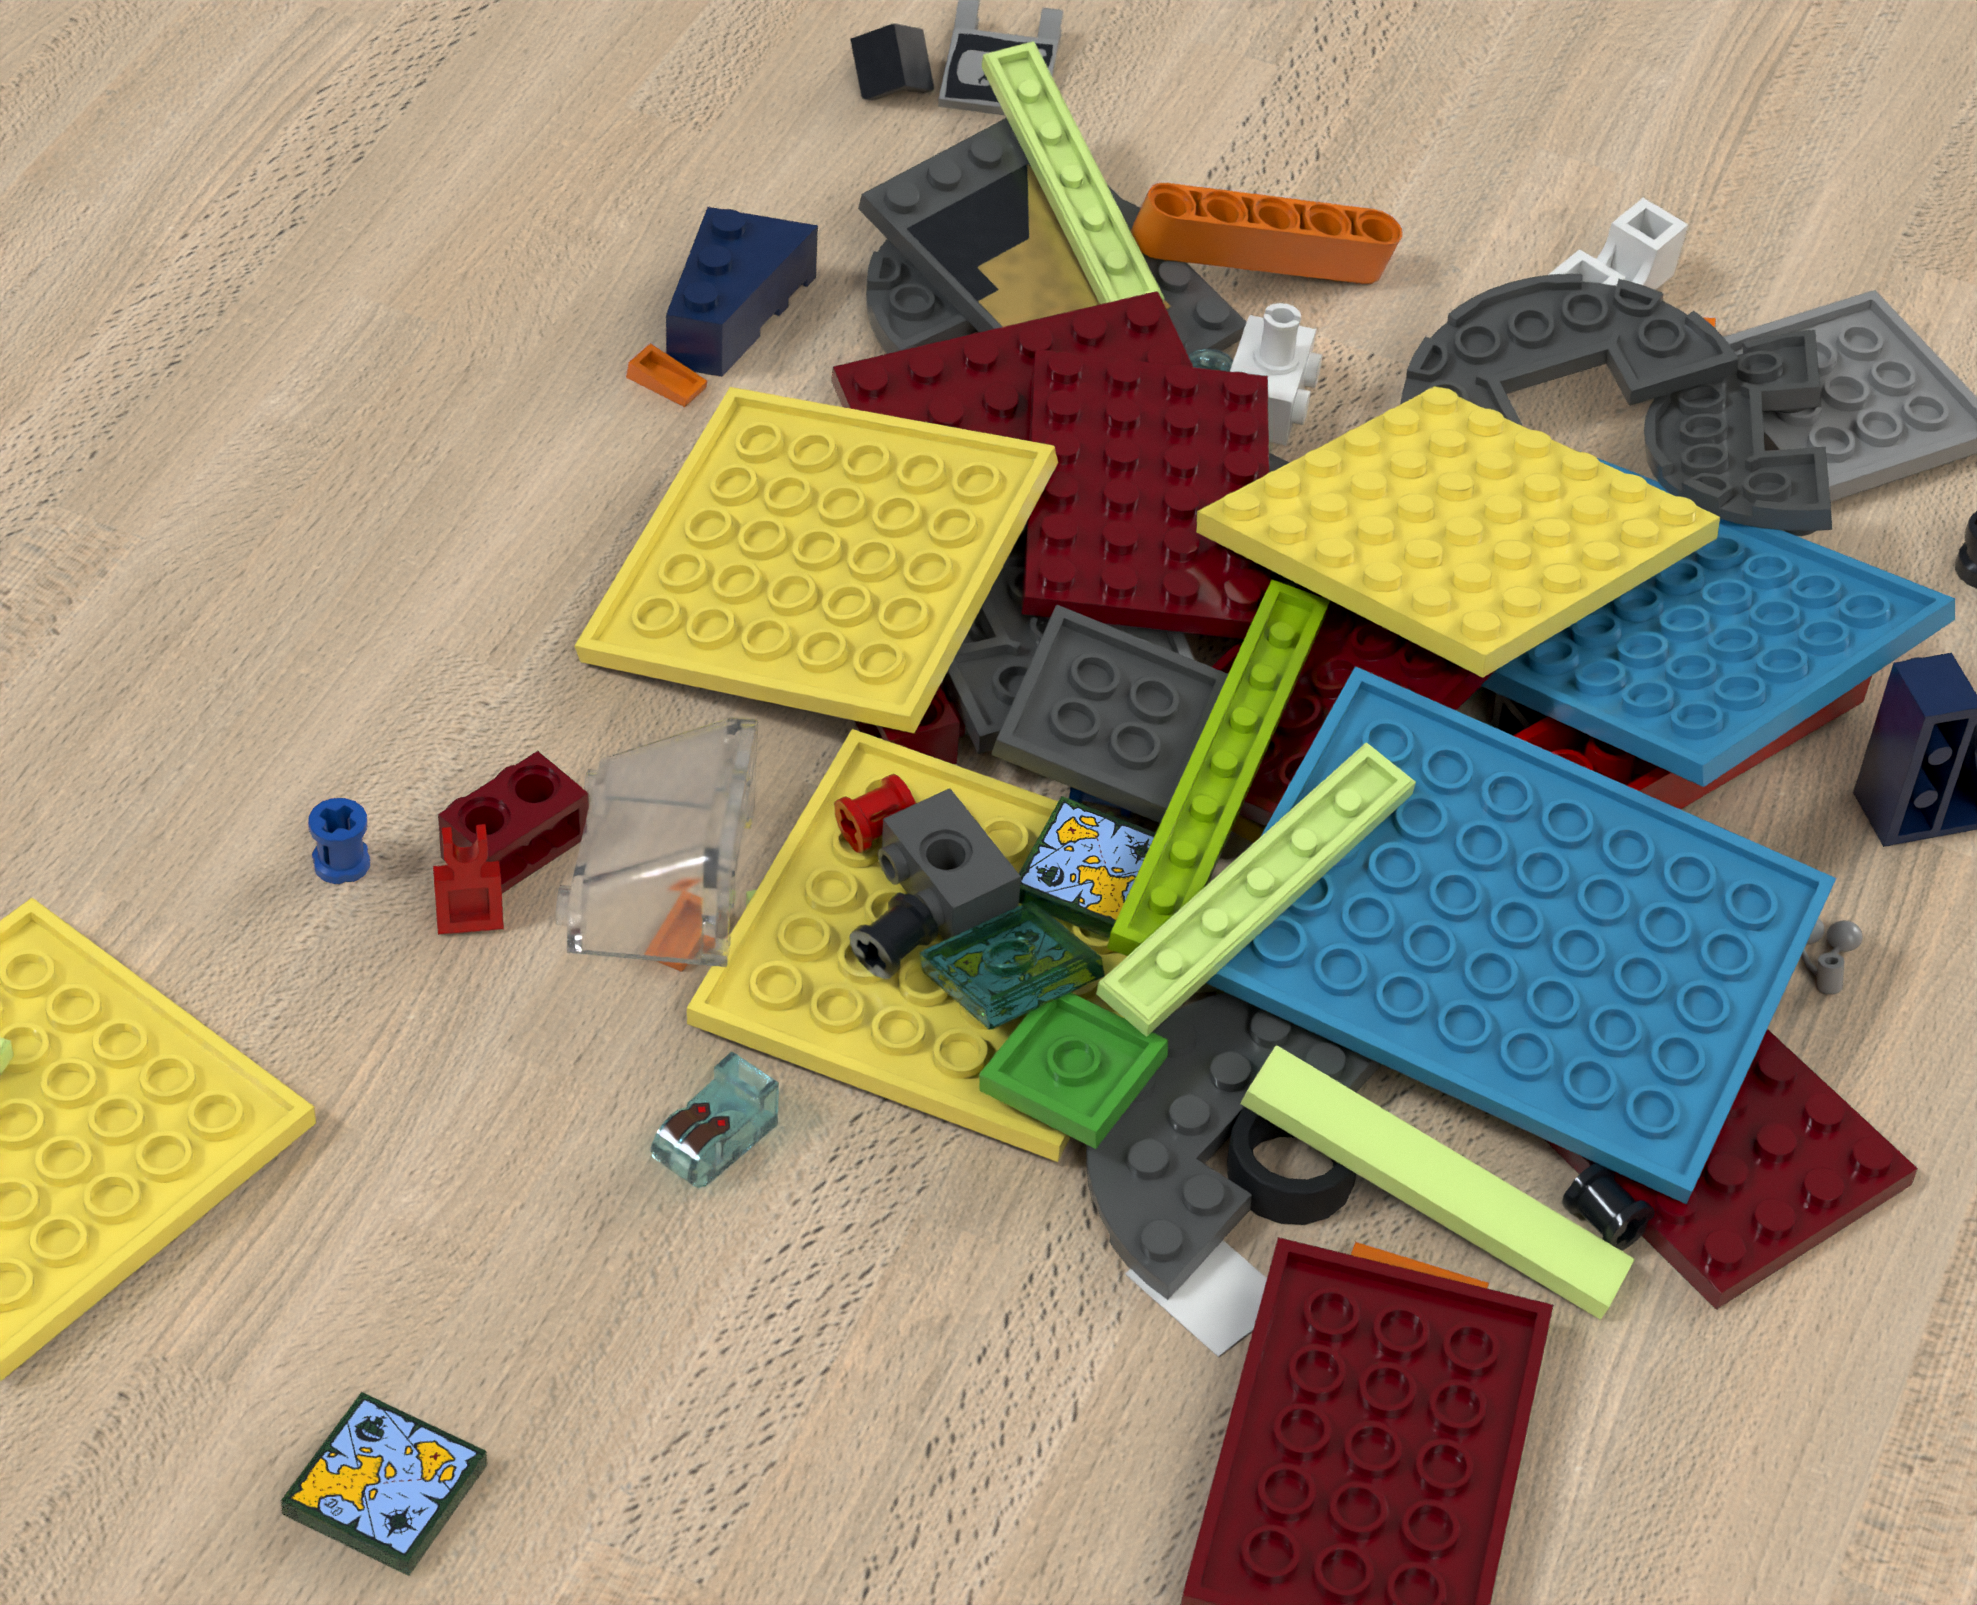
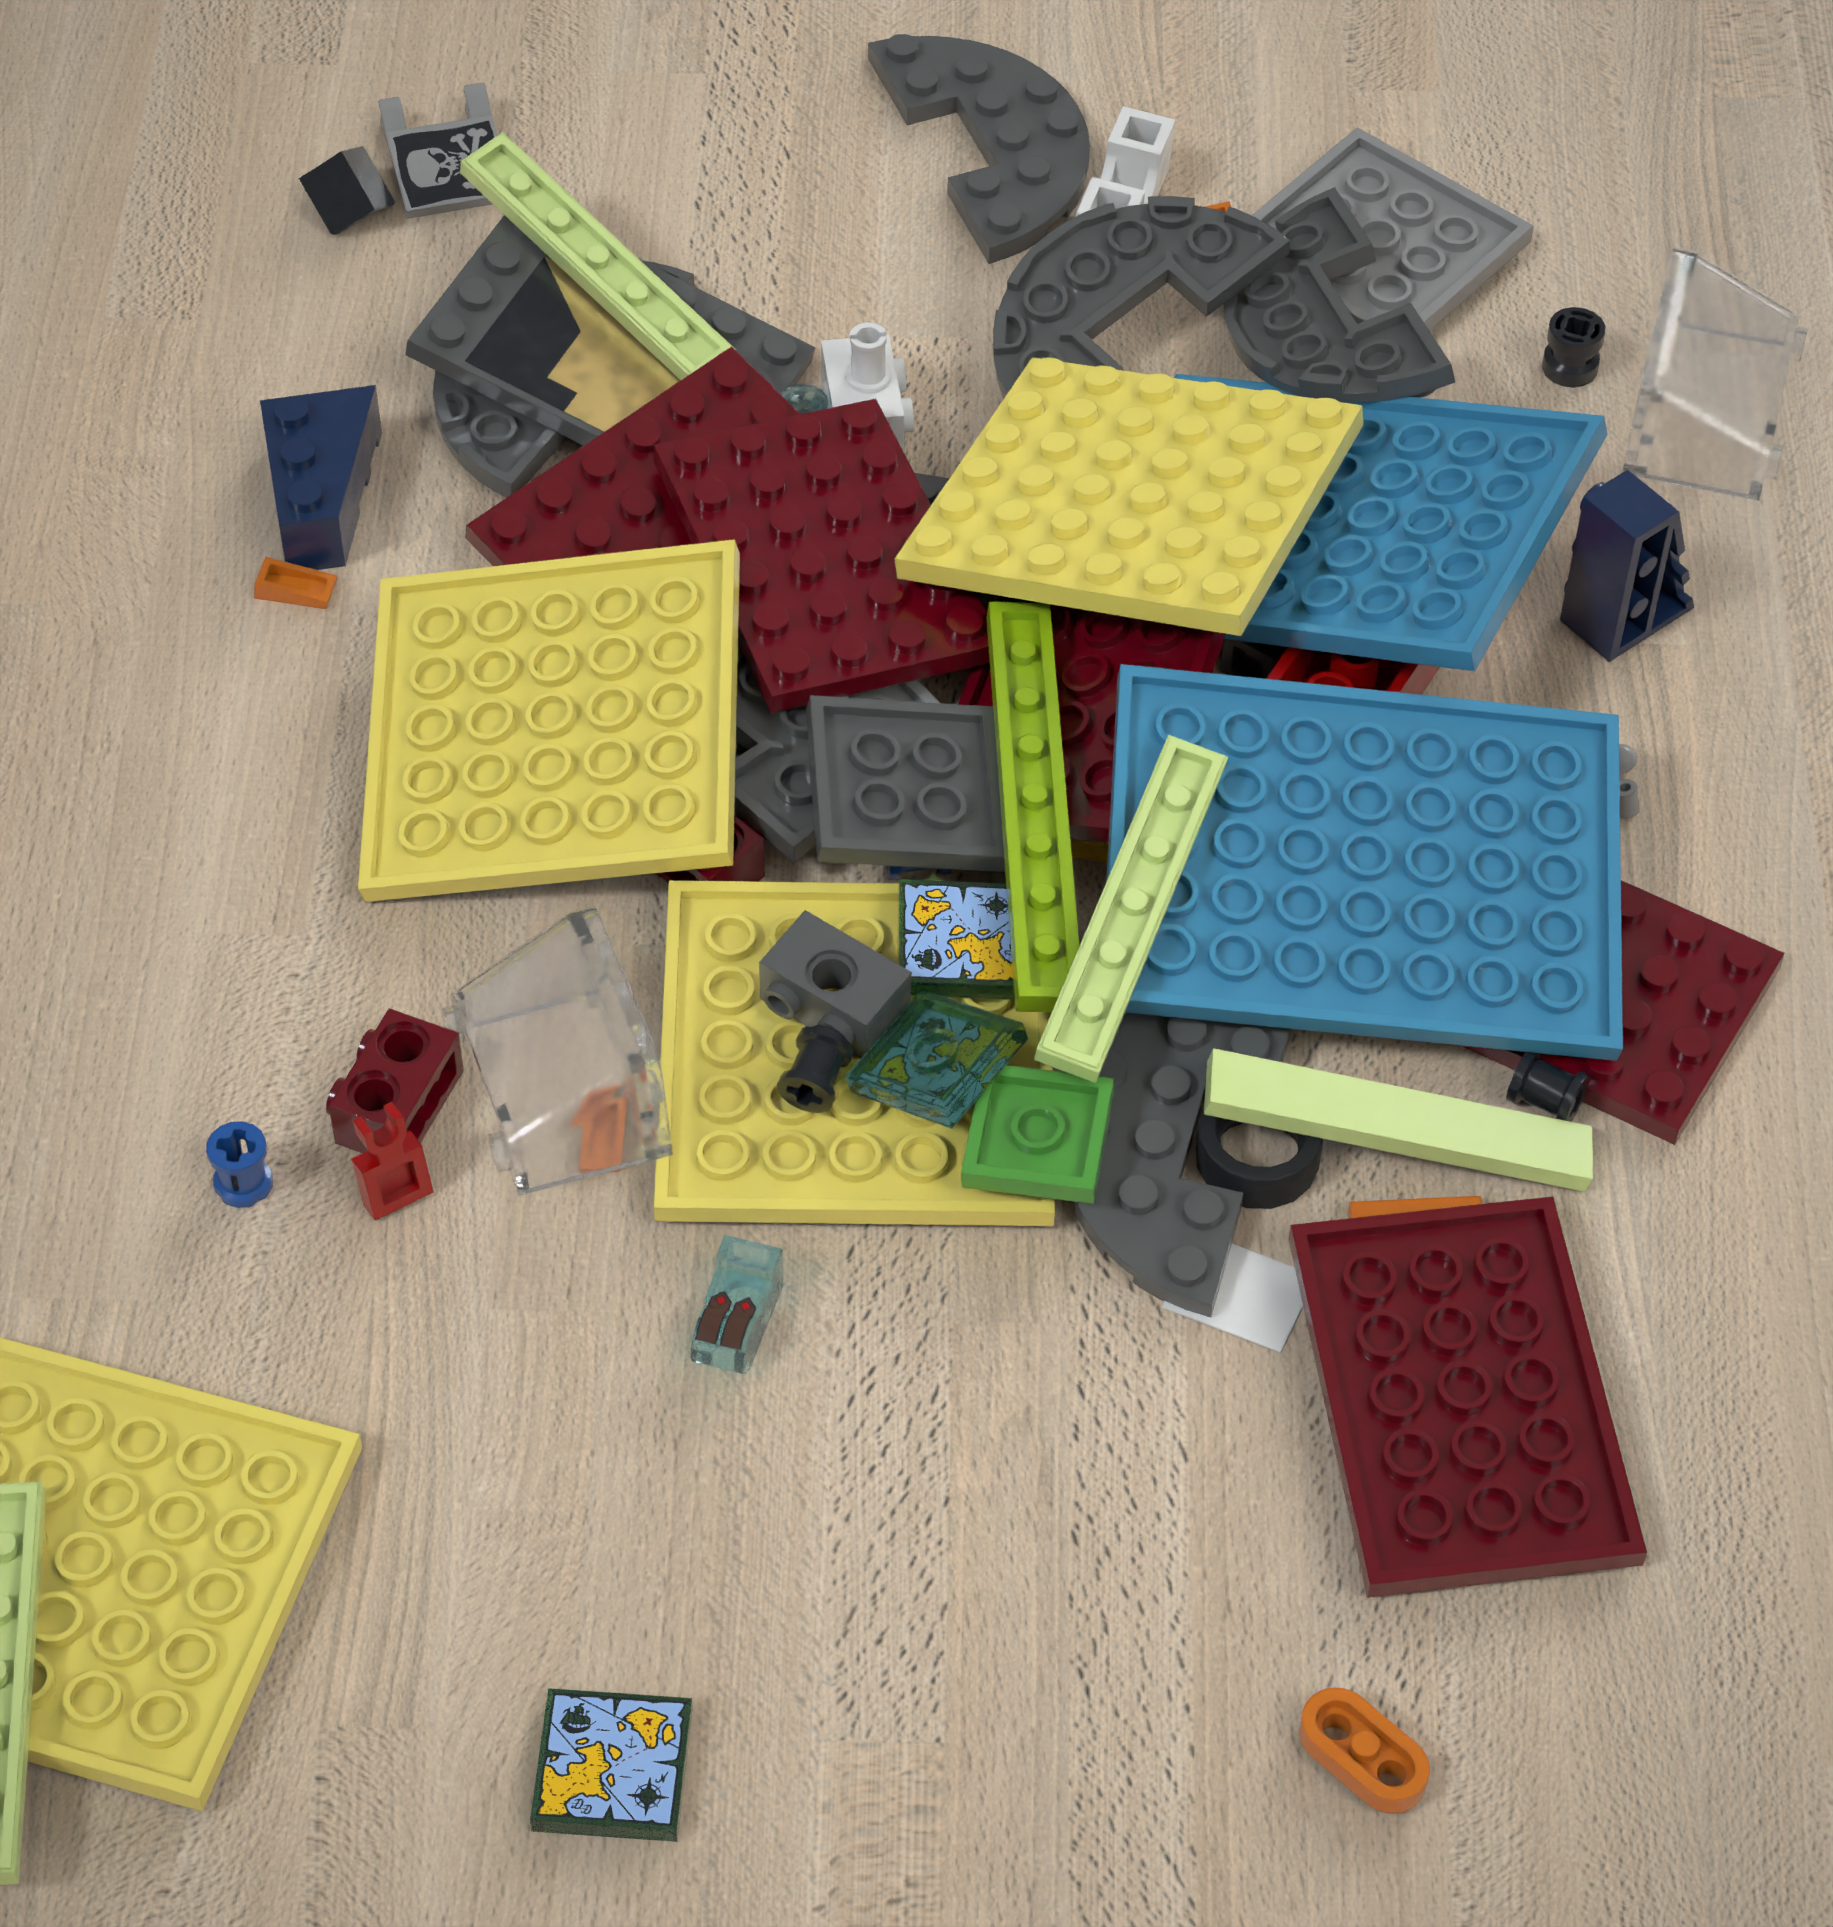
camera: 20 degrees left, 5 degrees up
(858, 816) = (738, 956): red bush -> none
(1265, 233) = (795, 253): orange beam -> none
(1549, 186) = (1018, 121): none -> dark grey plate

